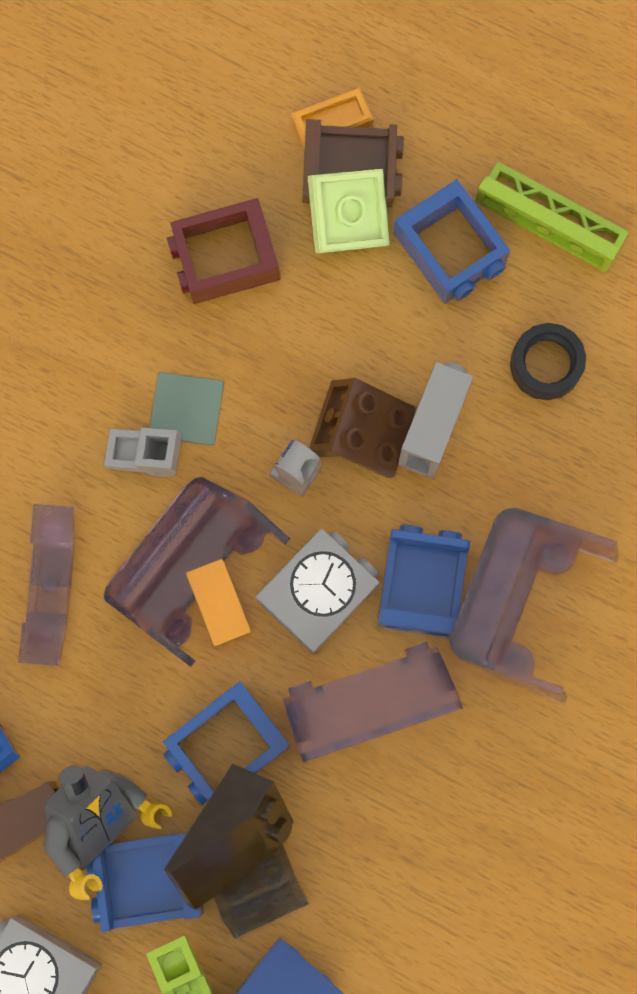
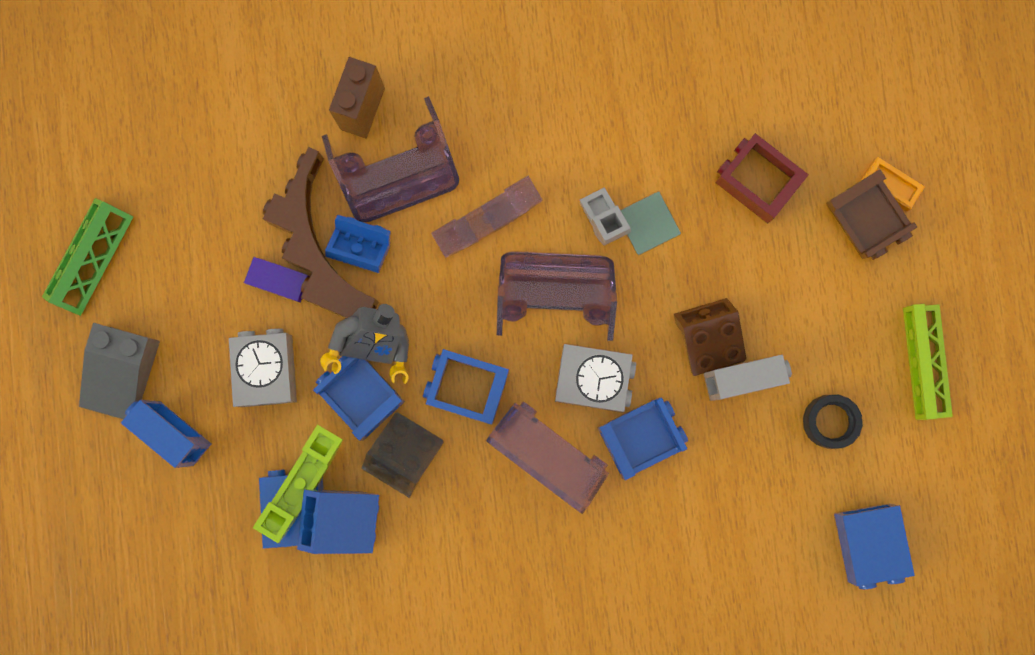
camera: 55 degrees right, 5 degrees up
(218, 602) = (546, 324): light orange tile -> none
(230, 836) = (415, 427): dark brown slope -> none
(296, 467) = (658, 314): light grey leg -> none
(348, 210) = (840, 235): yellowish green tile -> none
(429, 212) = (874, 284): blue window -> none
(500, 587) = (672, 486): windscreen -> none

